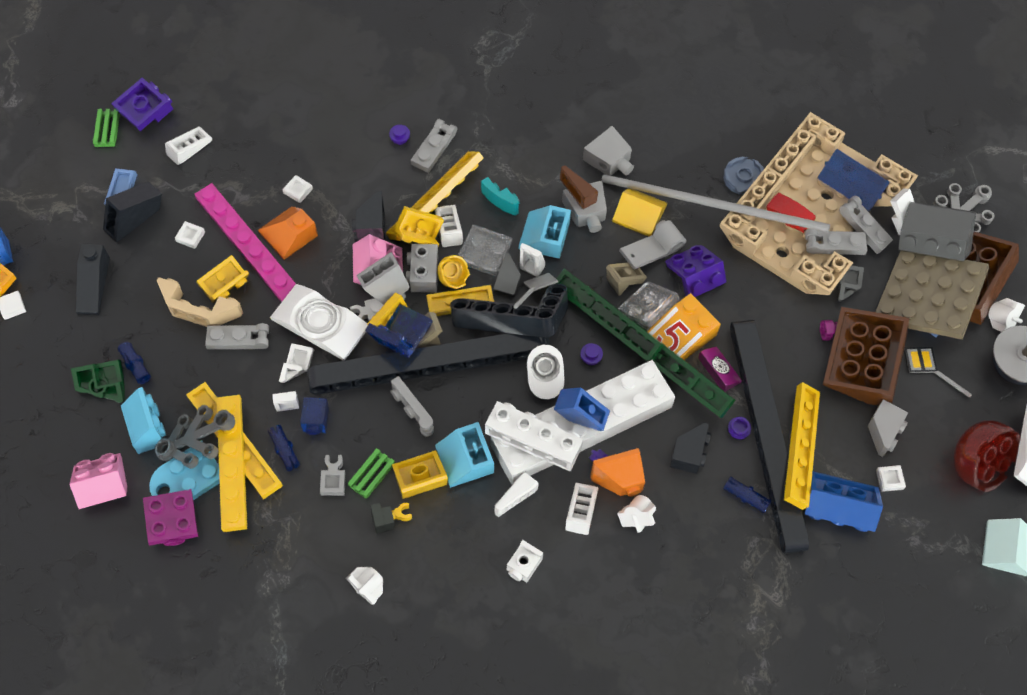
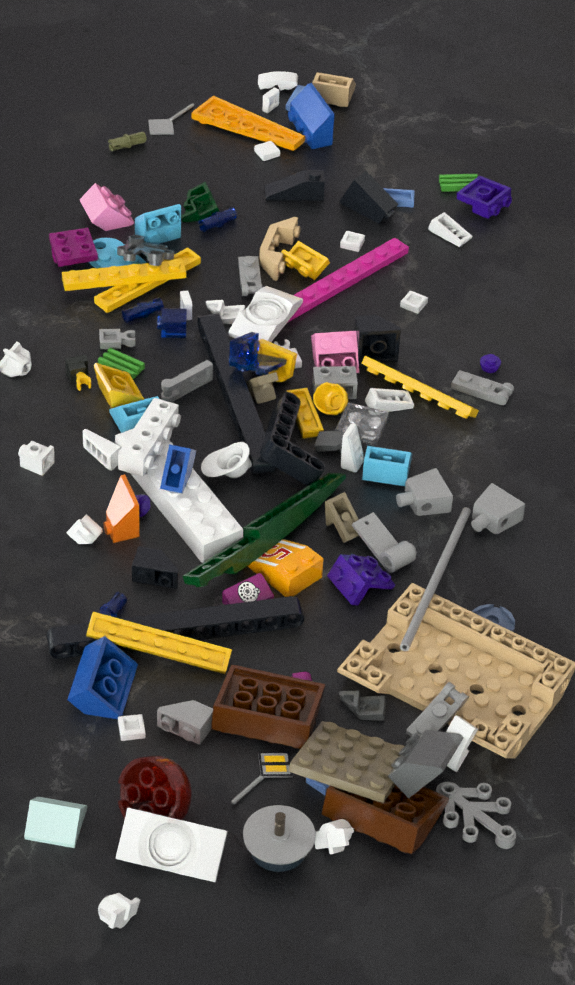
camera: 85 degrees right, 20 degrees down
(289, 231) = (364, 299): orange slope -> none
(384, 279) = (310, 345): light grey torso -> none
(418, 226) = (372, 368): yellow bracket -> none
(502, 199) = (428, 426): teal slope -> none
(535, 284) = (328, 460): light grey piece -> none
(578, 522) = (84, 495): white slope -> none
(580, 189) = (433, 470): reddish brown slope -> none
(591, 354) = (254, 502): dark purple plate -> none
(639, 211) = (430, 534): yellow slope -> none
(649, 303) = (311, 535): clear plate -> none
(739, 428) = (180, 604): dark purple plate -> none
(788, 206) = (438, 643): red slope -> none
(841, 242) = (406, 683): light grey plate -> none
(853, 179) = (489, 694): clear blue piece -> none

